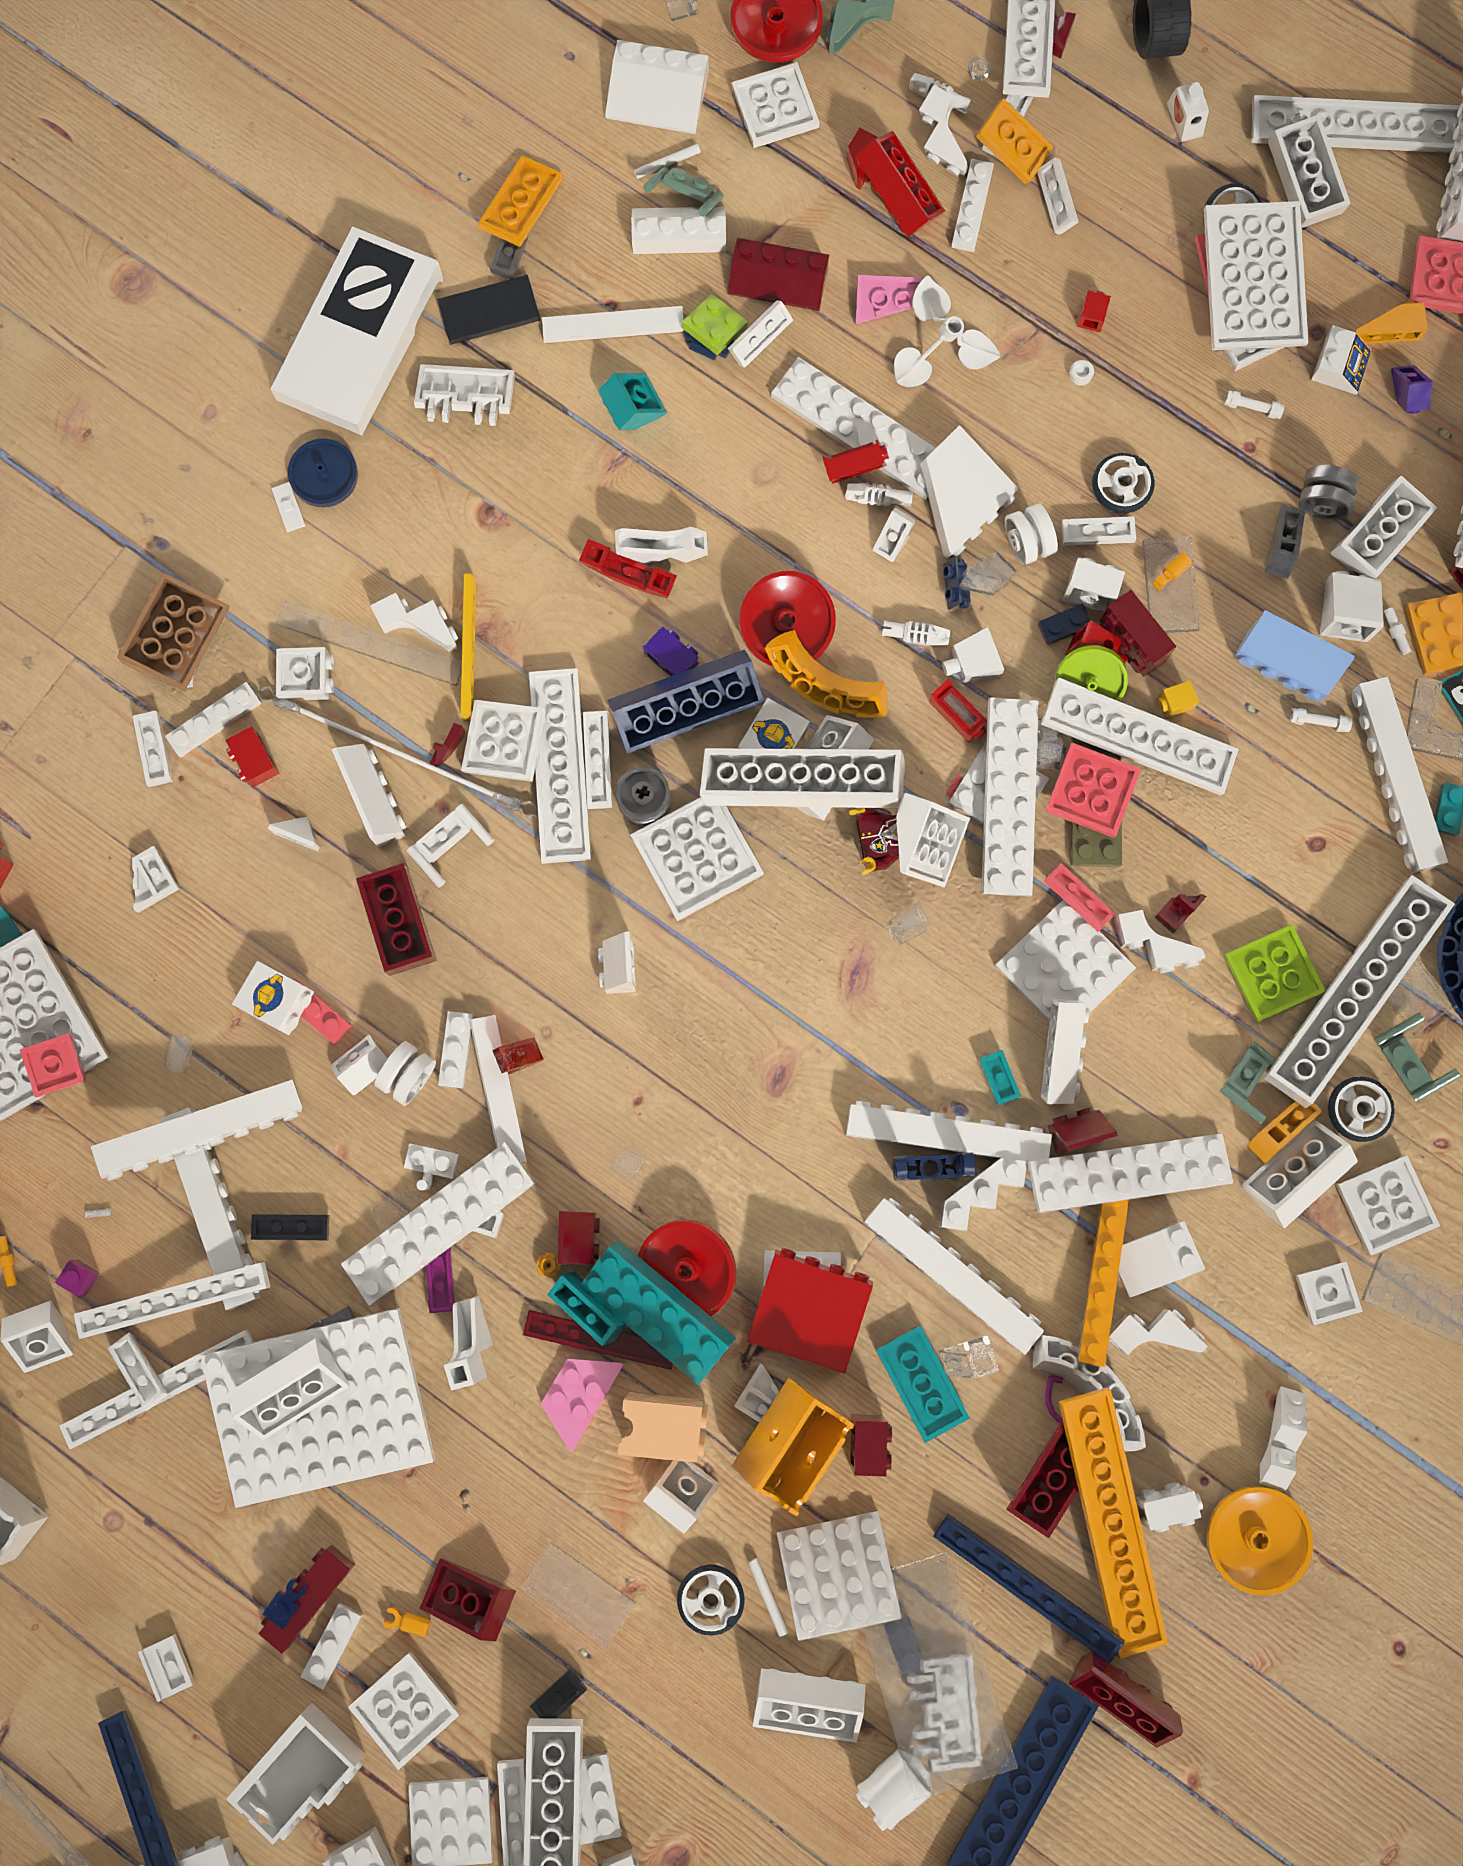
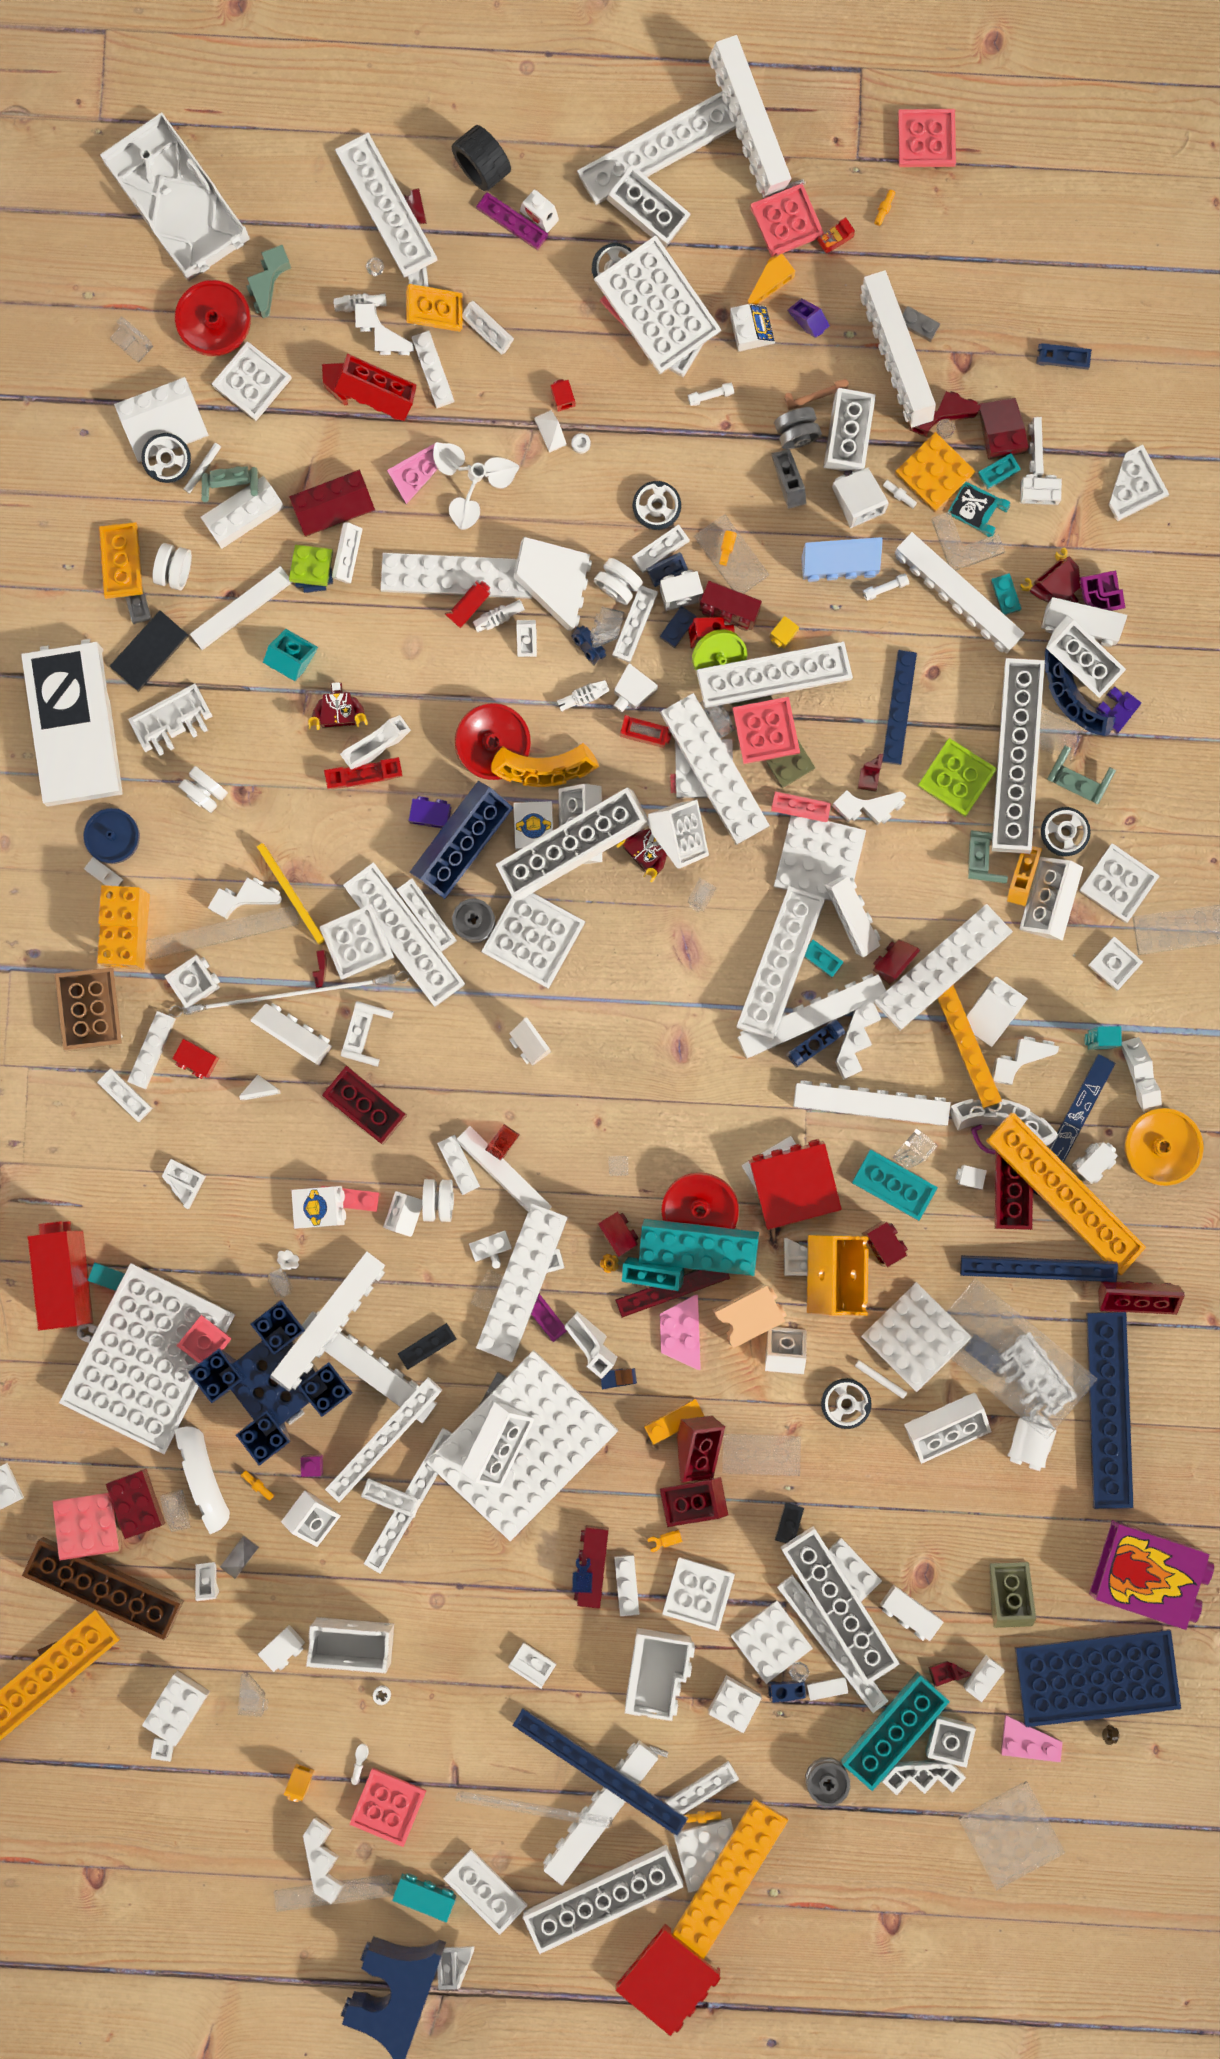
camera: 30 degrees left, 5 degrees up
(50, 1113) = (223, 1373): none -> dark blue slope
(204, 1034) = (287, 1260): none -> white plant
(267, 569) = (123, 927): none -> light orange piece
(446, 480) = (202, 789): none -> white wheel
(475, 1401) = (619, 1377): none -> leg
(503, 1491) = (670, 1422): none -> light orange slope
(512, 1540) = (699, 1447): none -> dark red slope
(568, 235) = (172, 566): none -> white wheel
(617, 133) = (156, 471): none -> wheel
(643, 487) = (337, 710): none -> dark red torso
(949, 1053) = (780, 963): none -> white plate
(1015, 1431) = (971, 1177): none -> white brick
(1020, 592) = (635, 624): none -> white plate
(1057, 341) = (550, 431): none -> white slope
(1101, 553) = (671, 566): none -> dark blue plate
(1152, 107) = (512, 221): none -> magenta tile
(1190, 1432) = (1081, 1107): none -> dark blue tile
(1255, 858) = (899, 707): none -> dark blue plate
(1266, 1370) = (1104, 1038): none -> teal brick
(1336, 460) = (791, 403): none -> nougat hinge

